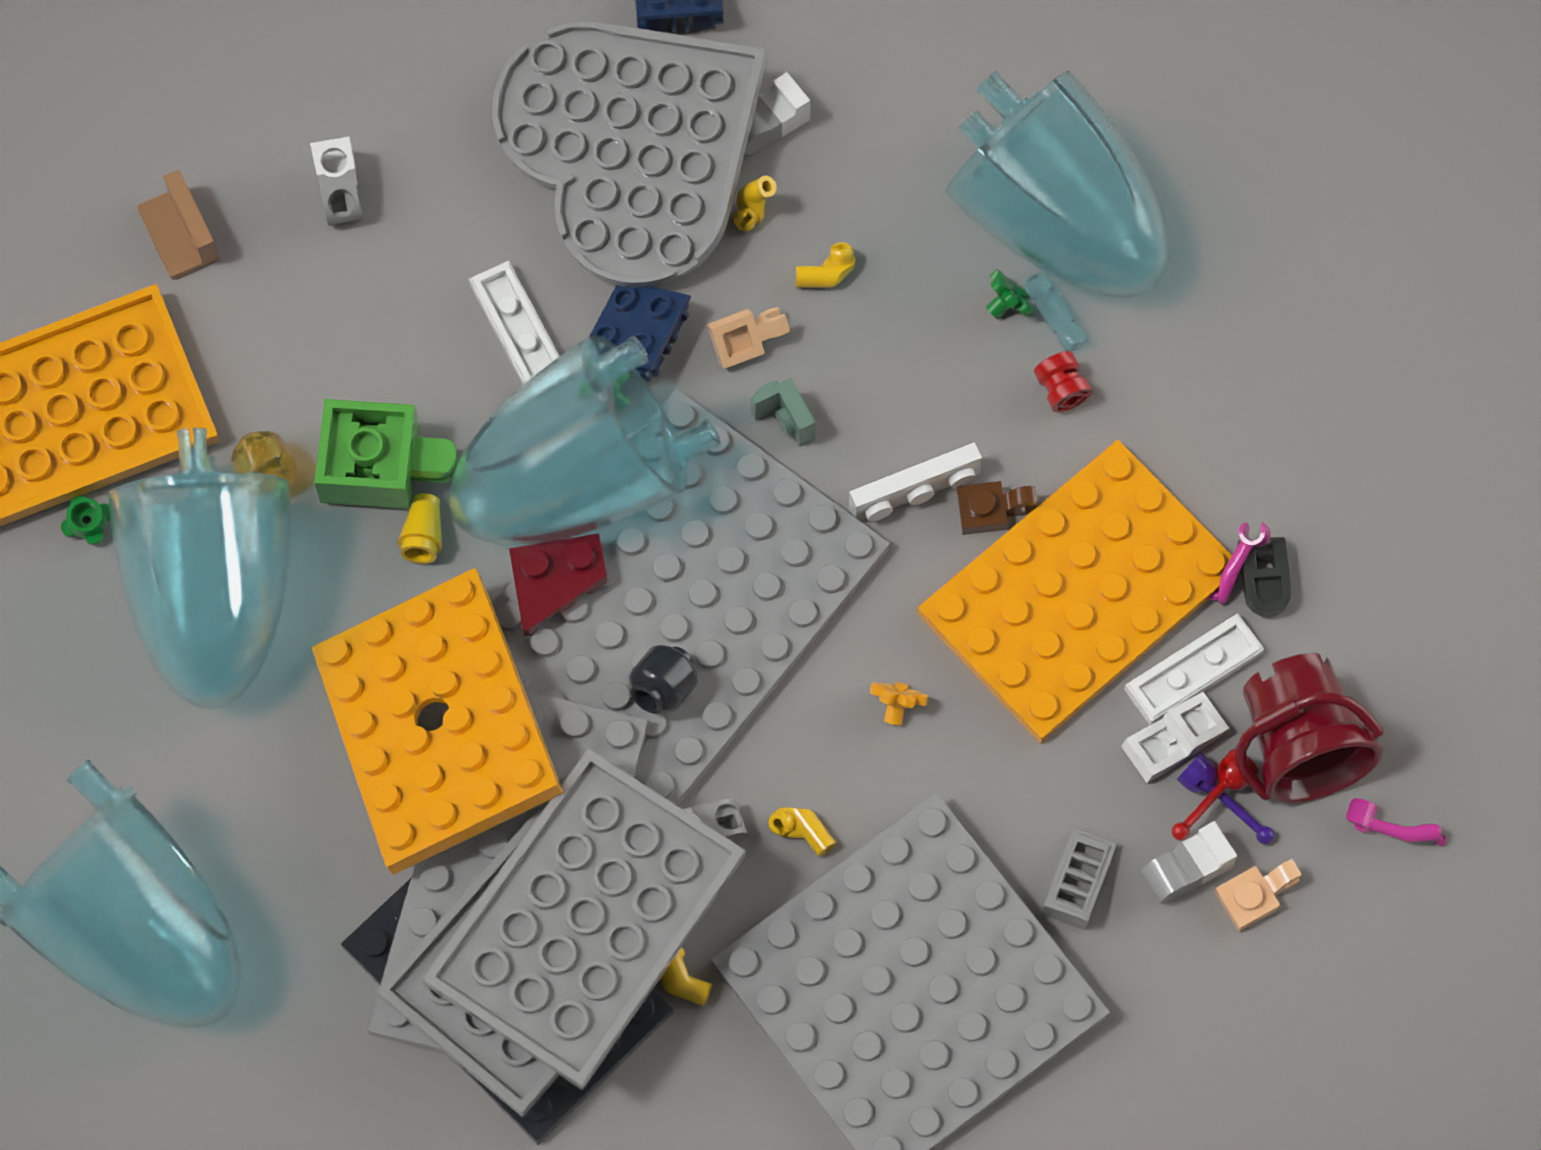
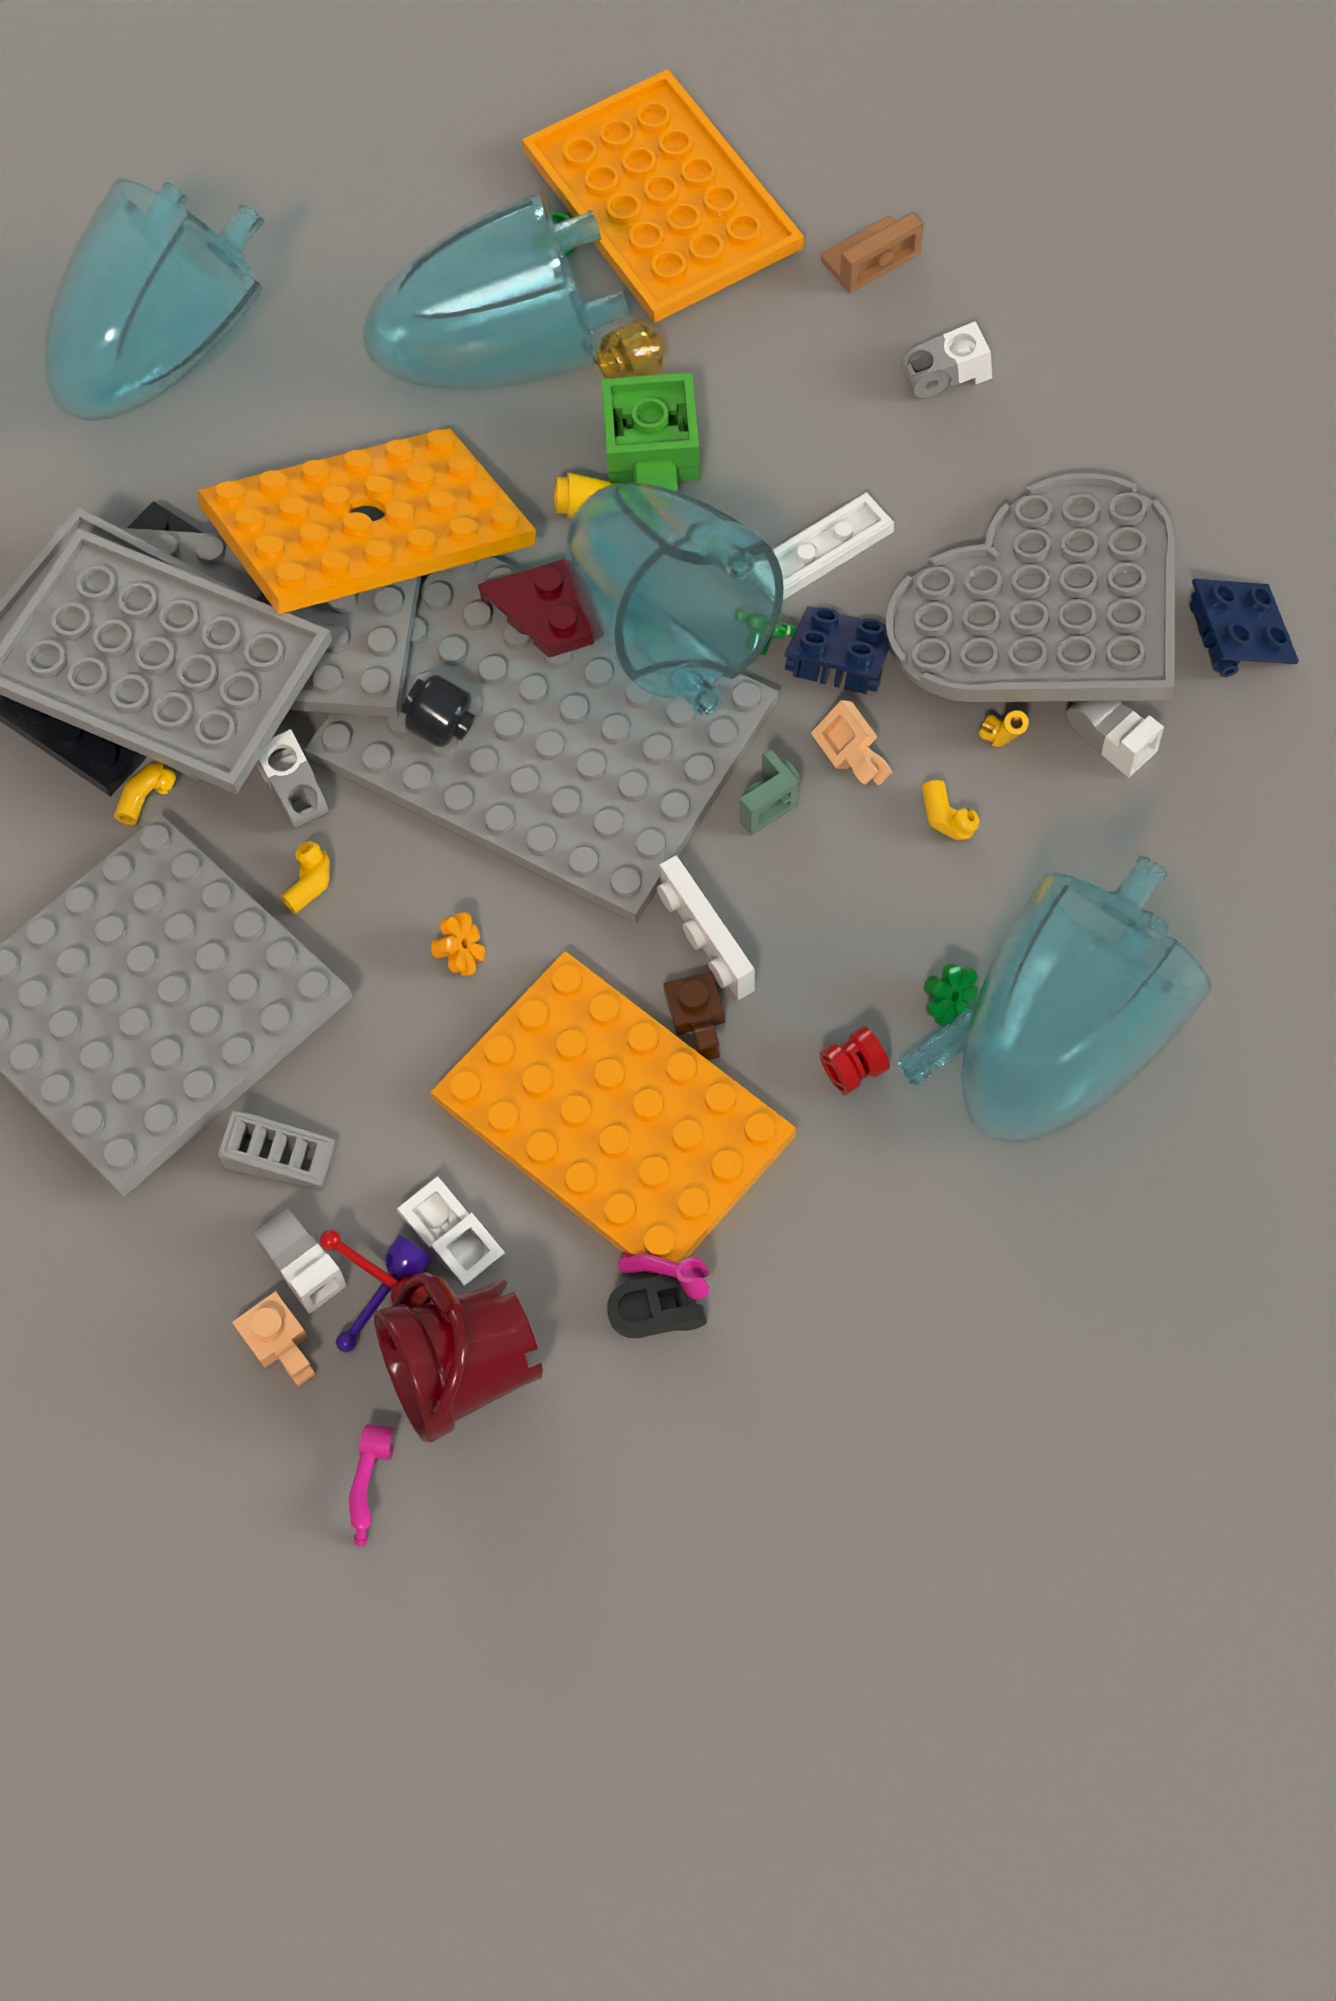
camera: 85 degrees right, 5 degrees down
(1194, 668) = (536, 1245): white tile -> none

